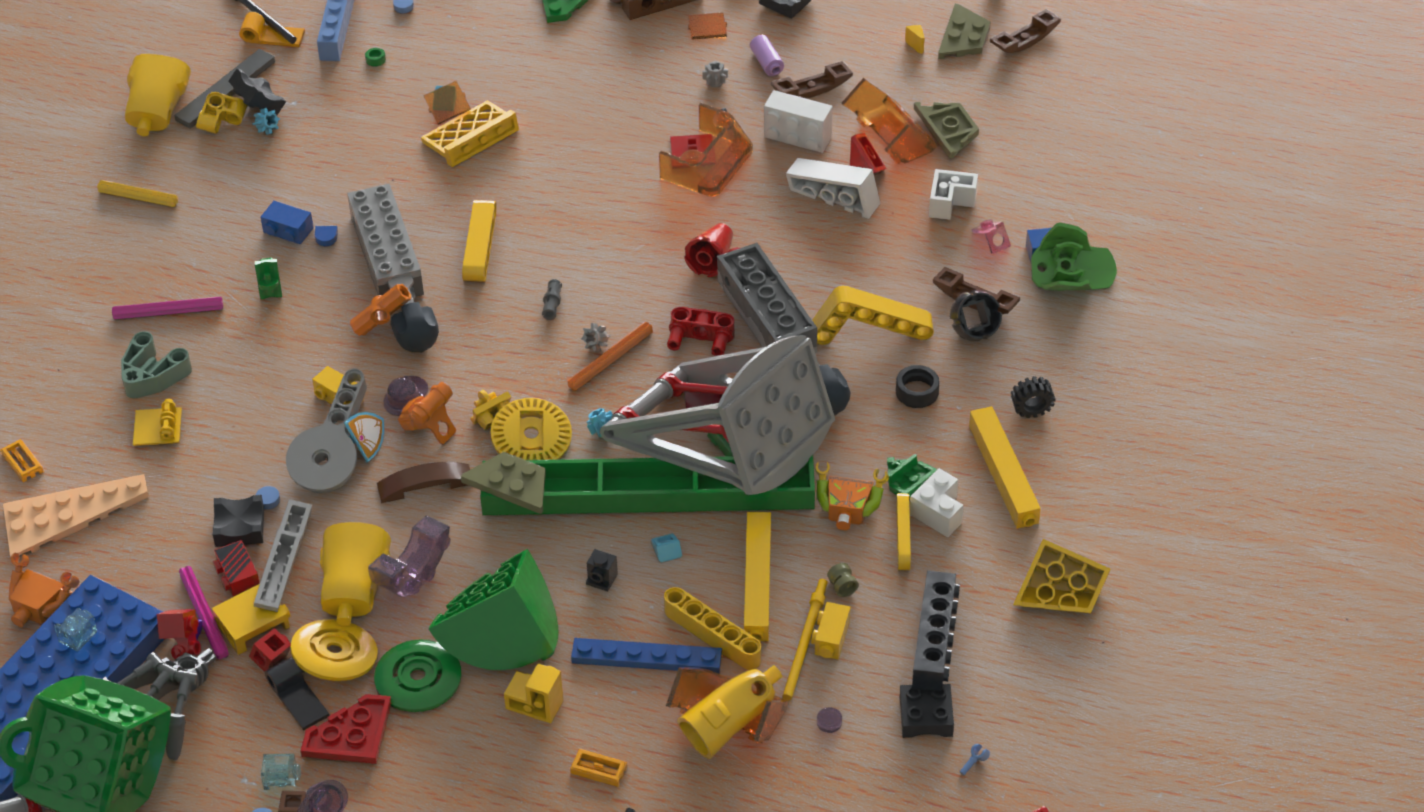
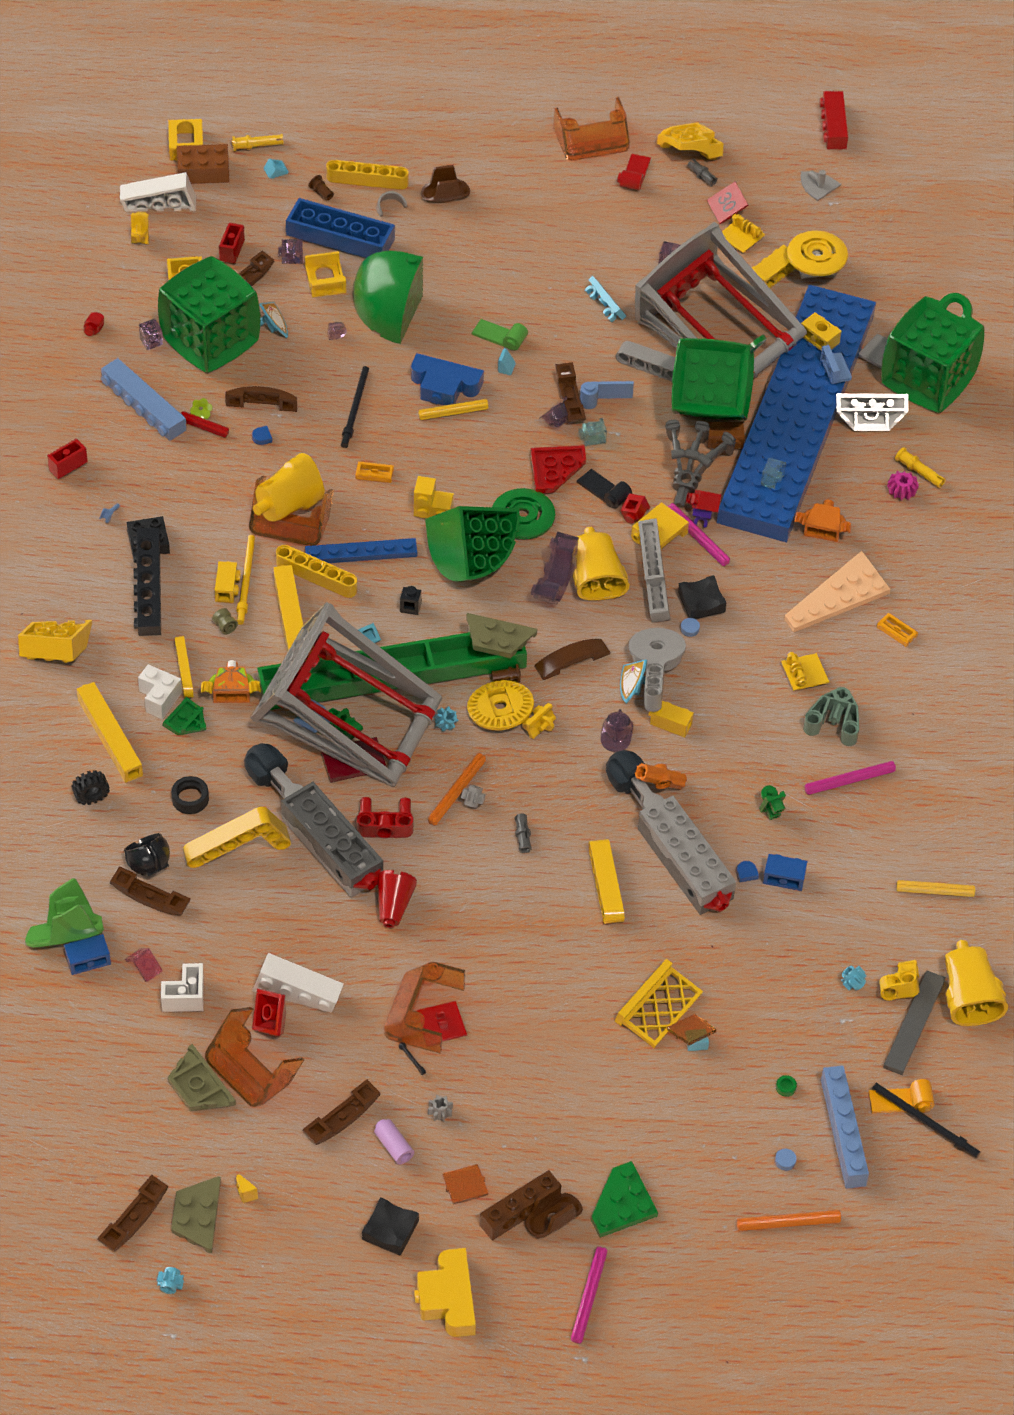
camera: 165 degrees right, 5 degrees up
(235, 568) = (686, 562): red brick -> none
(256, 92) = (875, 1000): black brick -> none
(311, 652) = (597, 500): yellow piece -> none
(428, 411) = (589, 697): orange piece -> none
(798, 121) = (343, 1045): white brick -> none
(829, 720) = (217, 526): clear purple tile -> none

